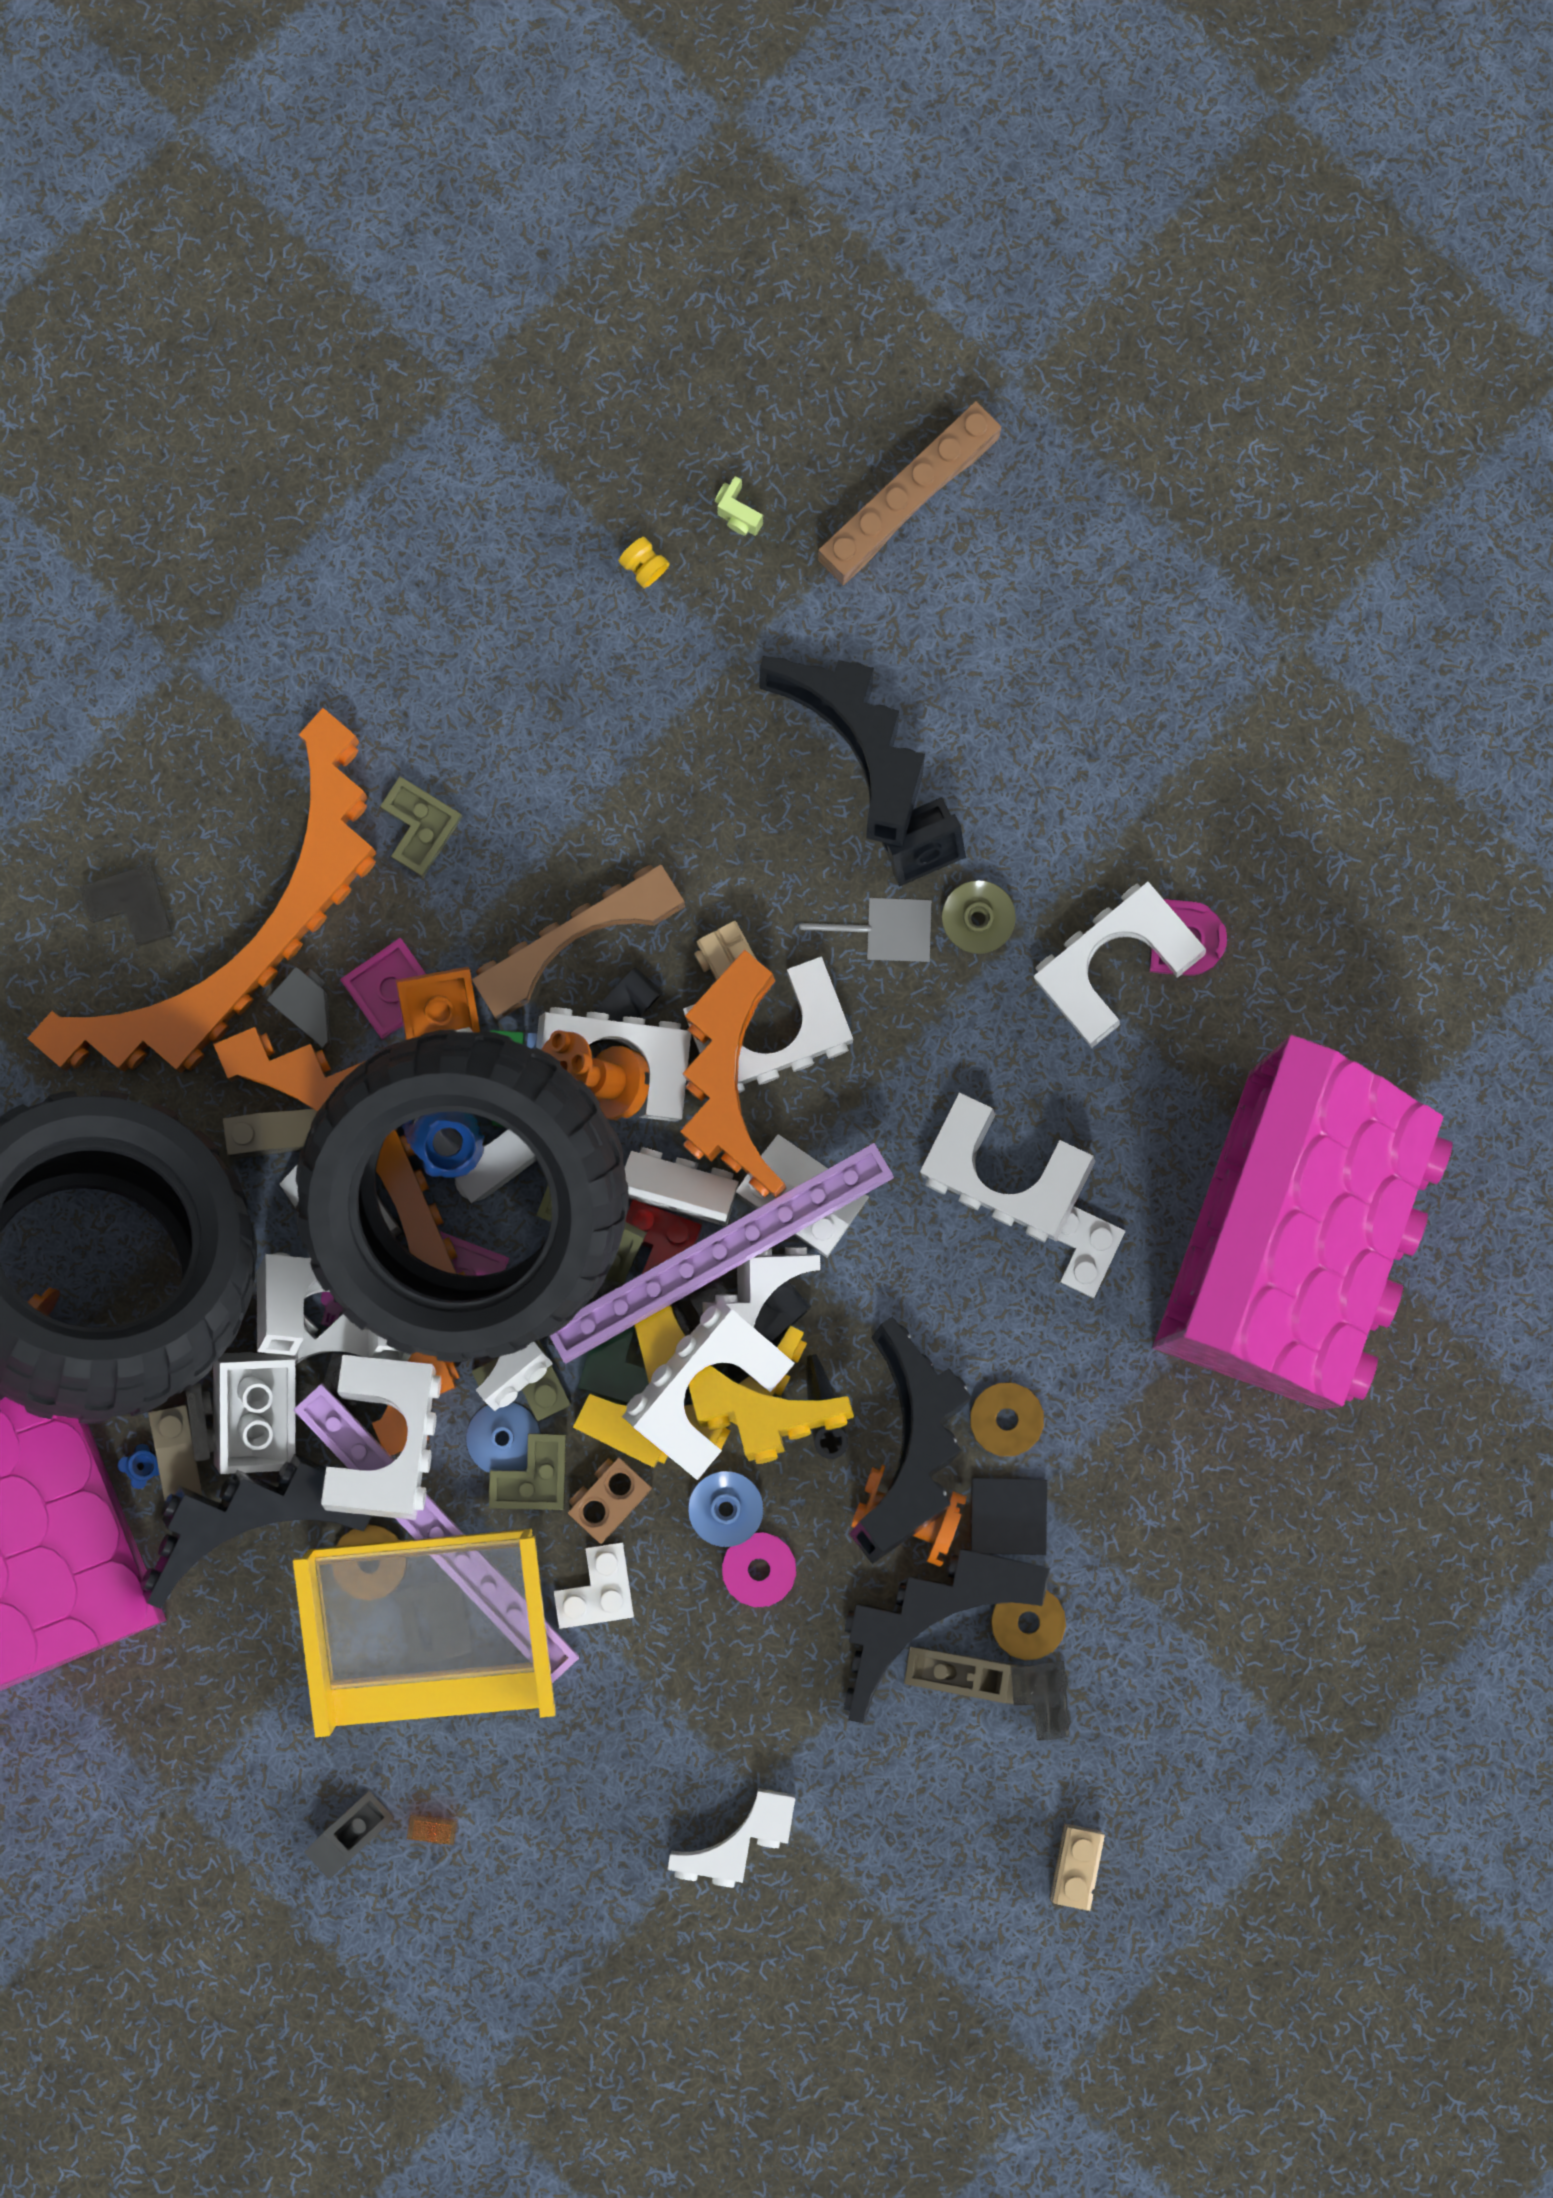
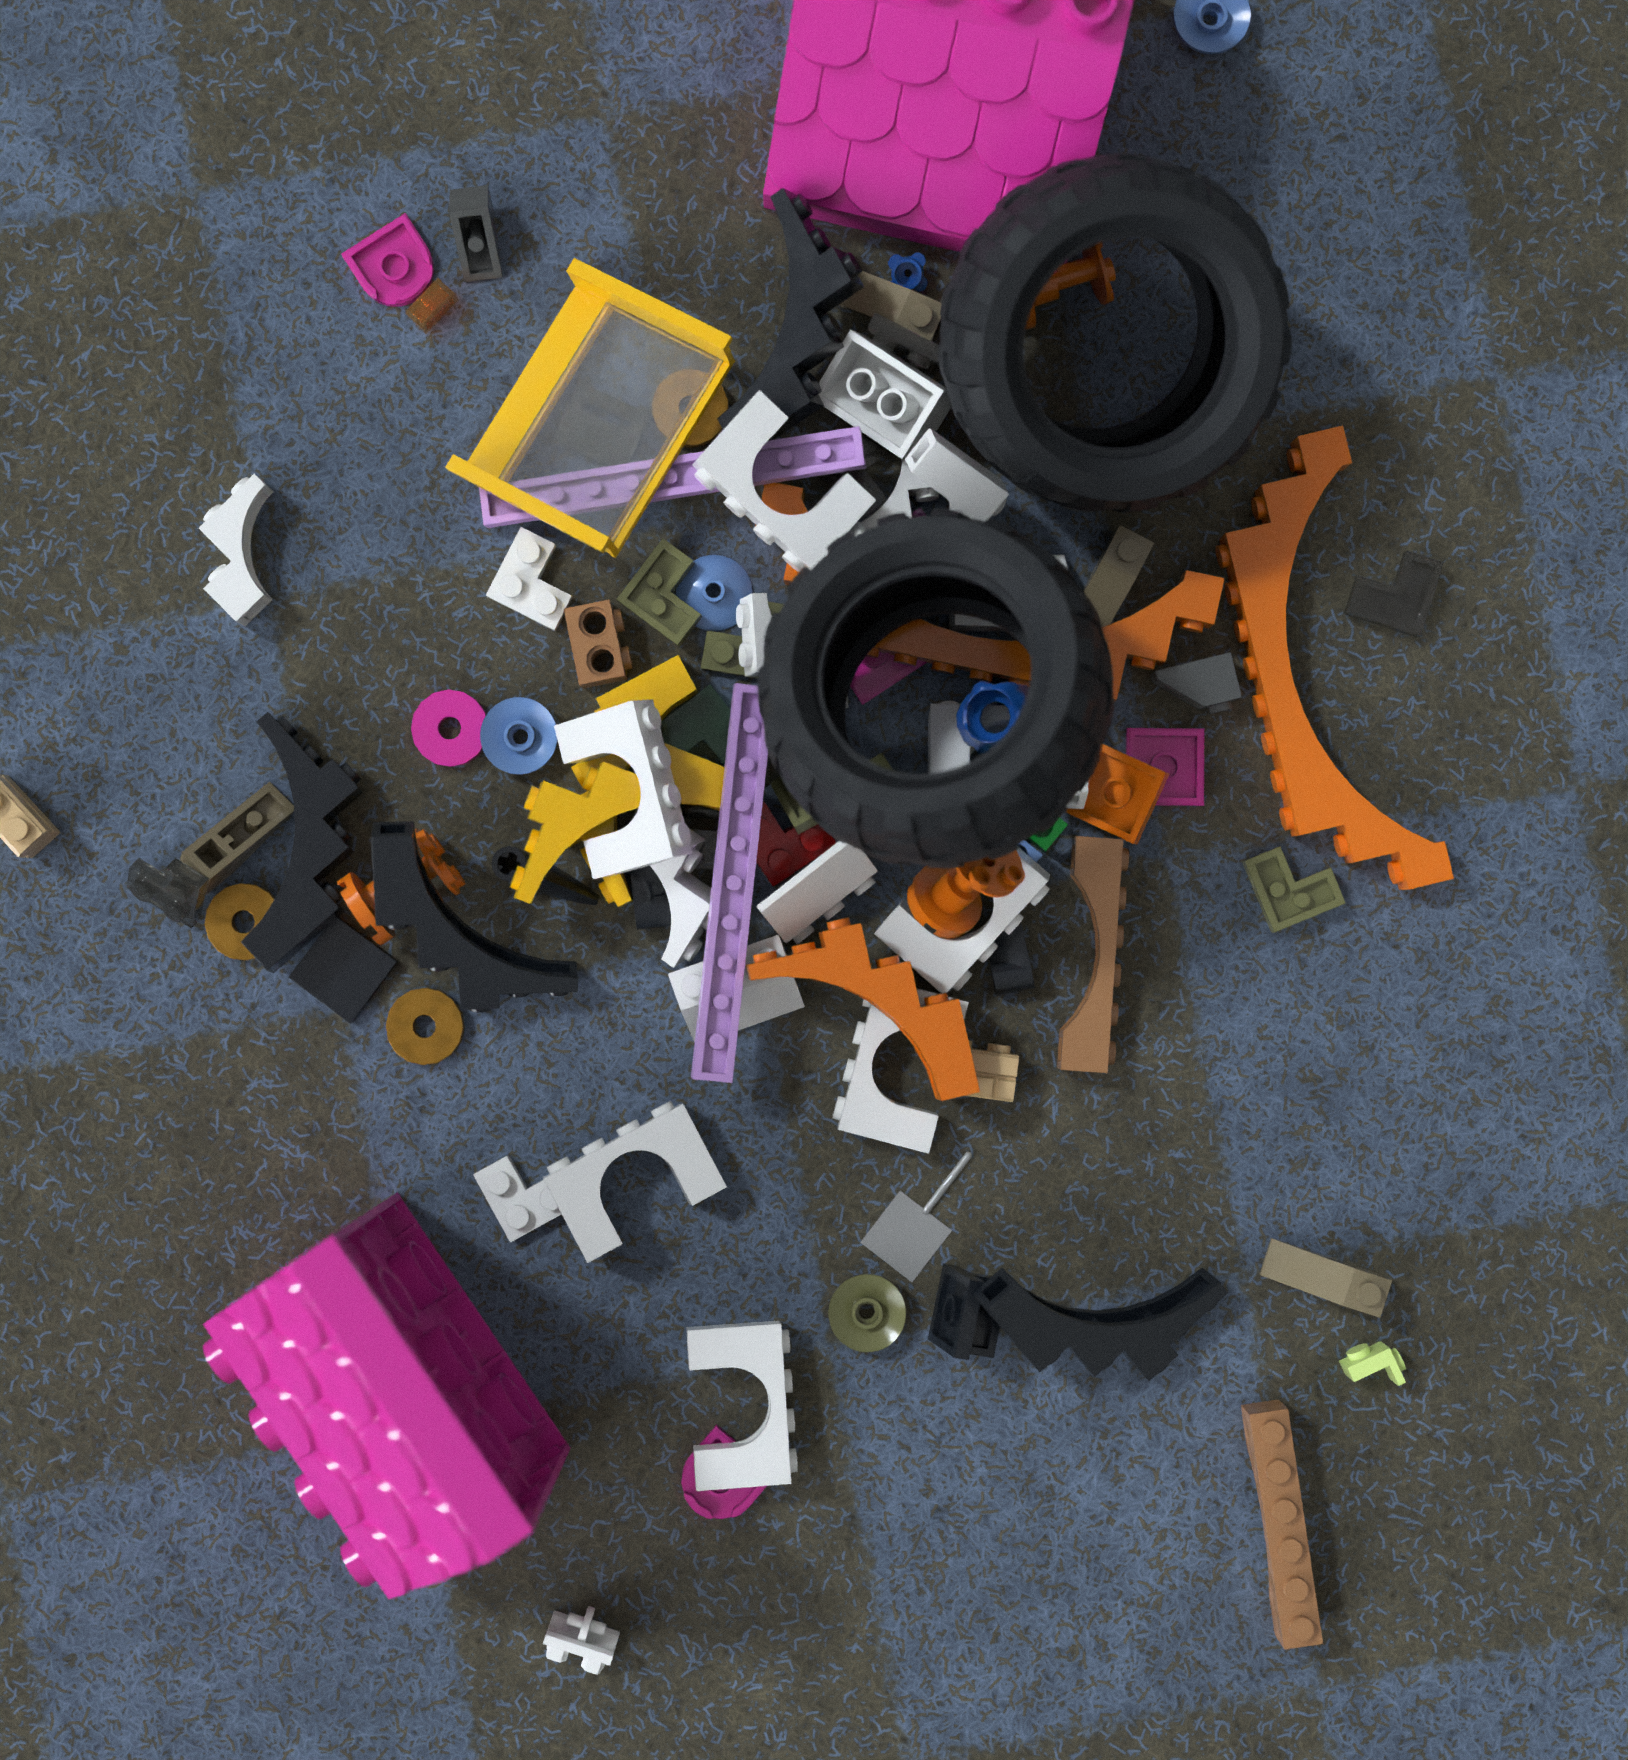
camera: 115 degrees right, 5 degrees up
(420, 1887) = (392, 263): none -> dark pink tile
(643, 562) = (1385, 1247): yellow wheel -> none
(698, 590) = (1326, 1277): none -> dark tan slope
(1384, 958) = (581, 1637): none -> white hips

